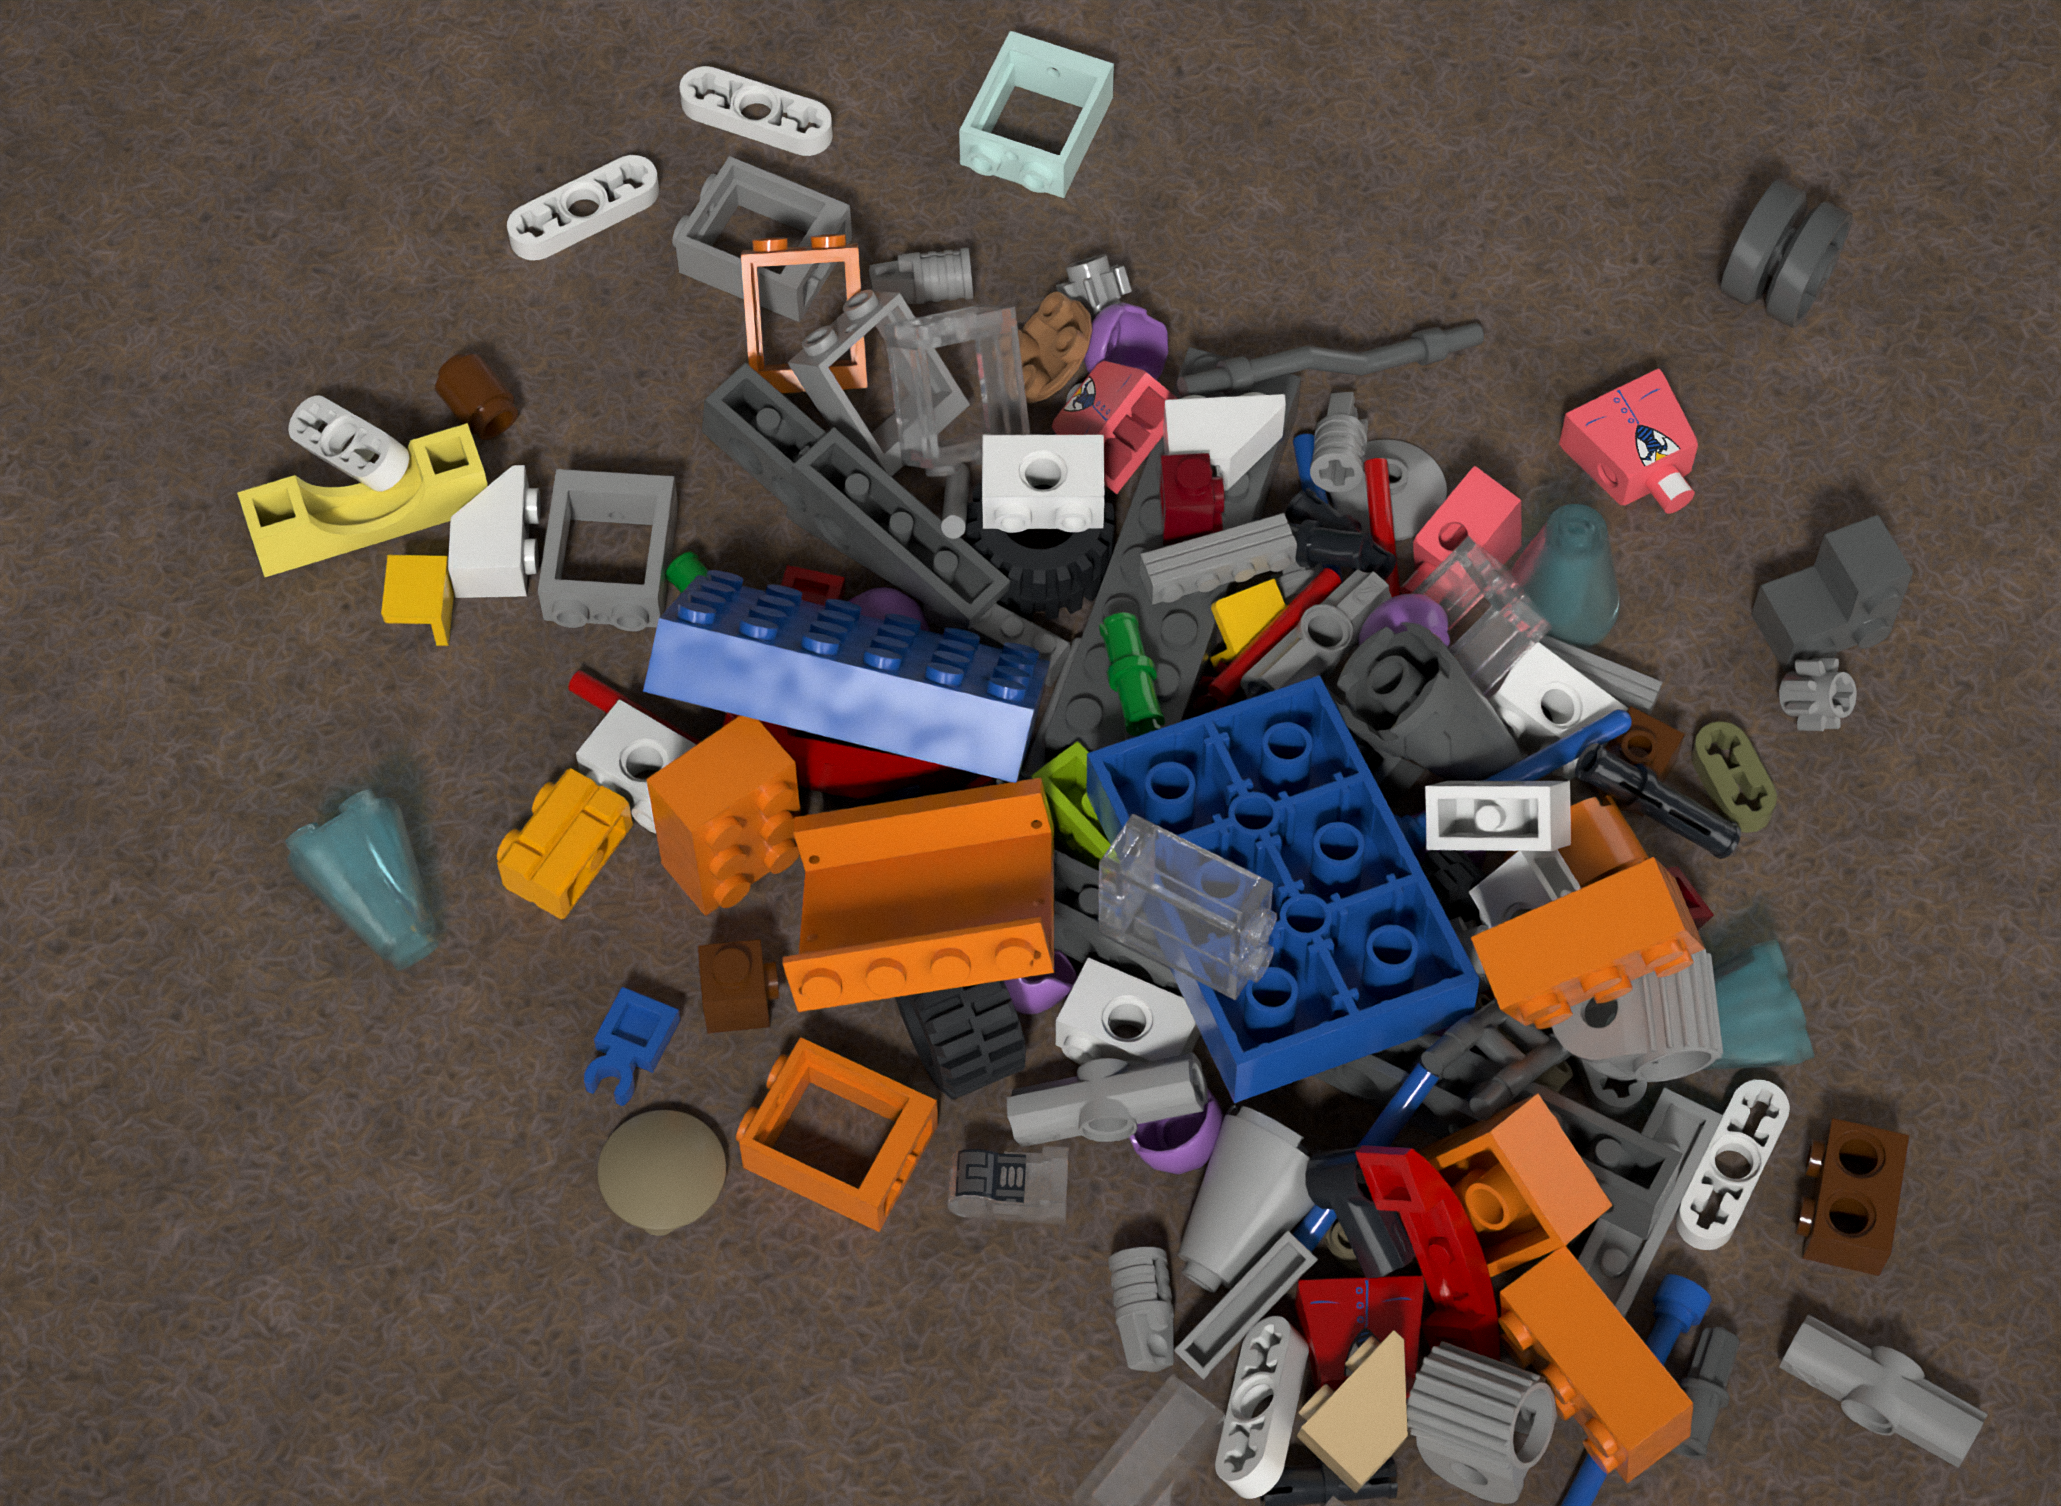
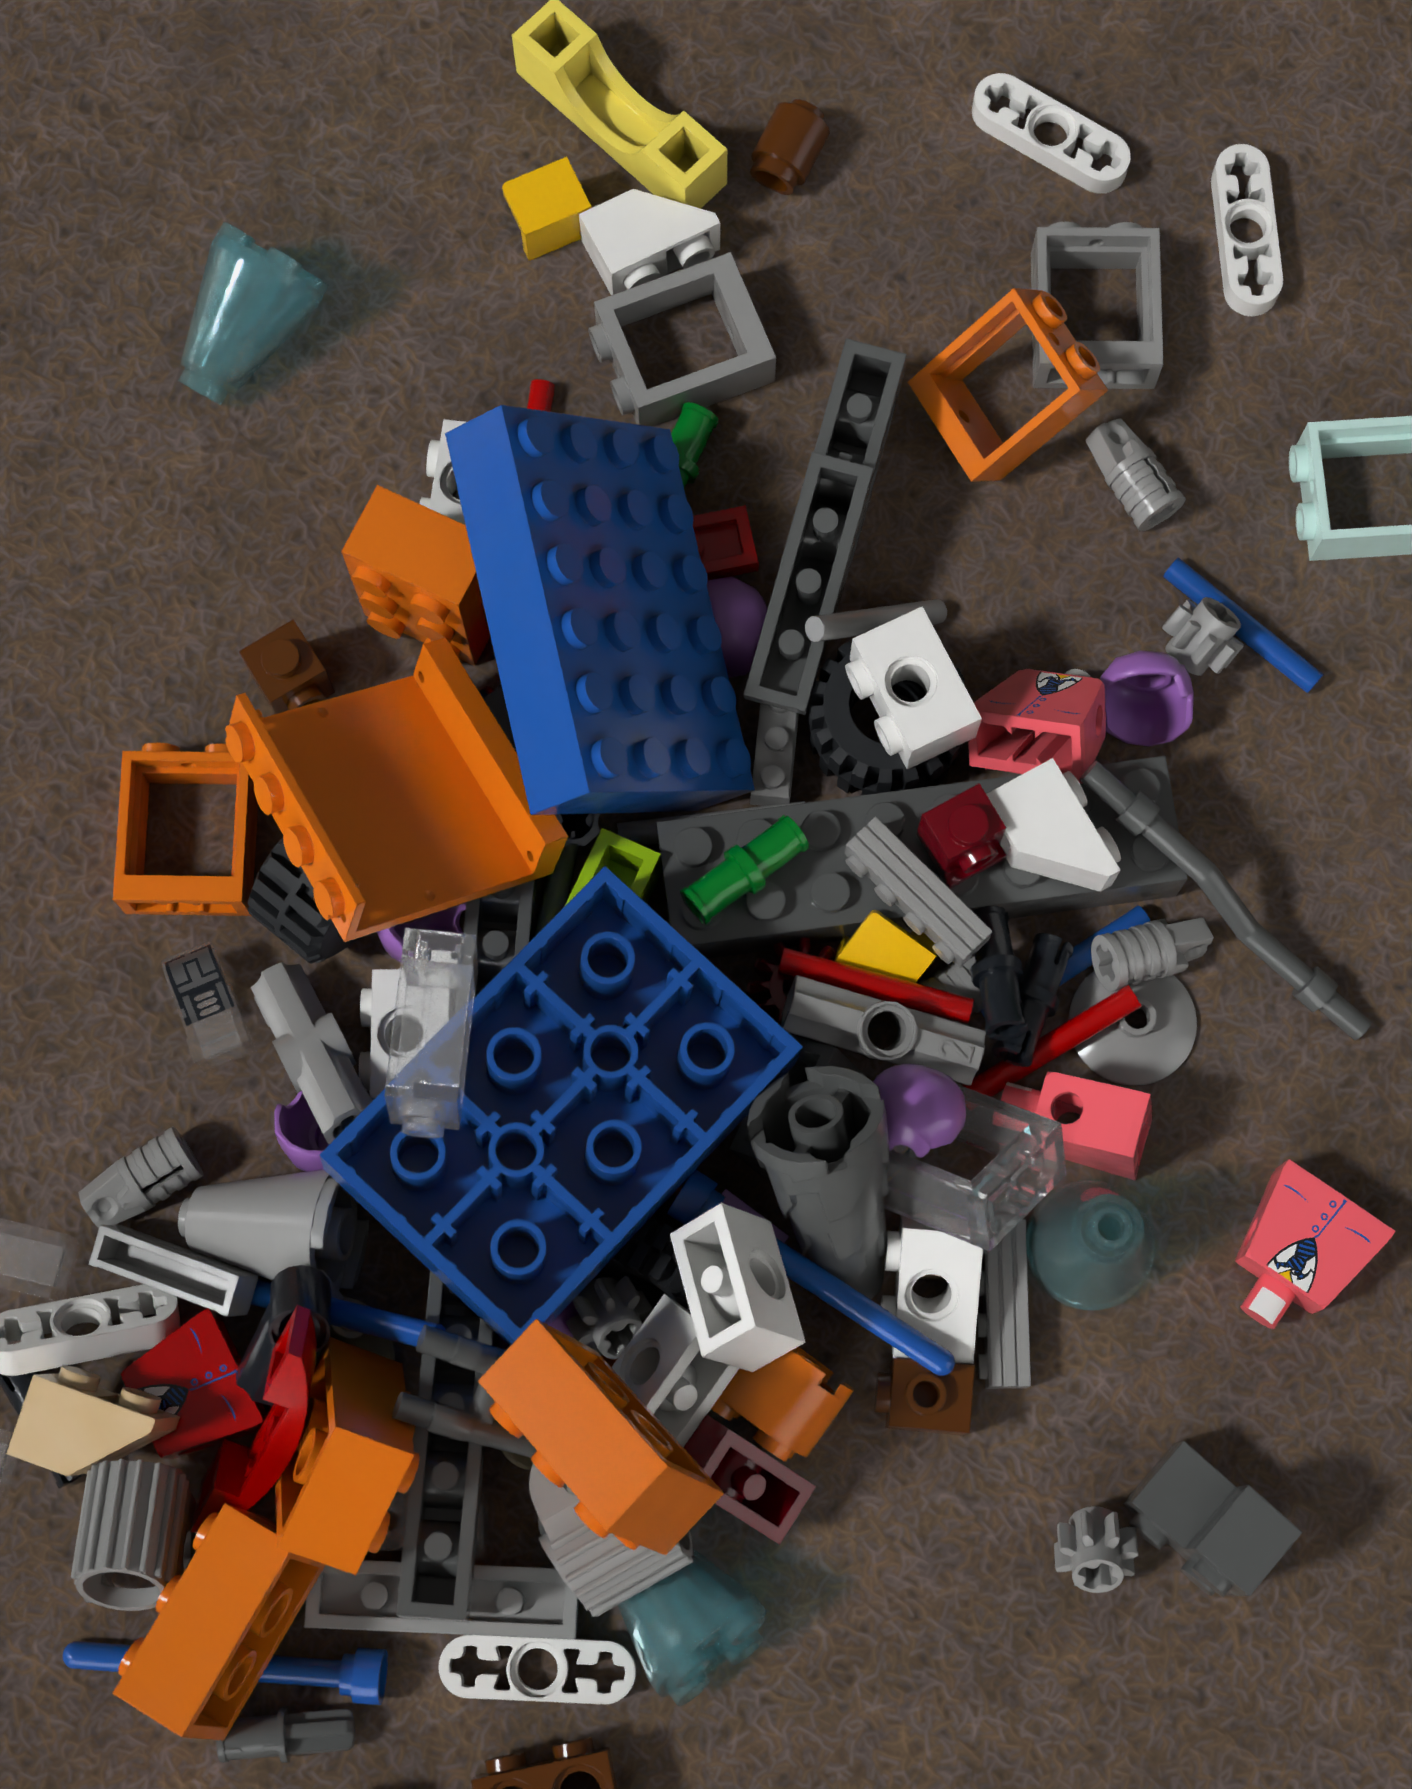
camera: 65 degrees right, 15 degrees up
(356, 457) = (669, 64): white beam -> none
(563, 842) = (351, 453): light orange brick -> none
(630, 1036) = (206, 613): blue plate -> none
(661, 1170) = (94, 700): dark tan dish -> none
(830, 342) = (953, 540): light grey window -> none
(999, 377) = (1031, 517): clear window -> none
(1053, 345) = (1105, 624): medium nougat dish -> none
(1121, 254) = (1251, 631): none -> blue bar
(1616, 777) = (870, 1414): black pin -> none
(1744, 770) = (980, 1511): olive beam -> none

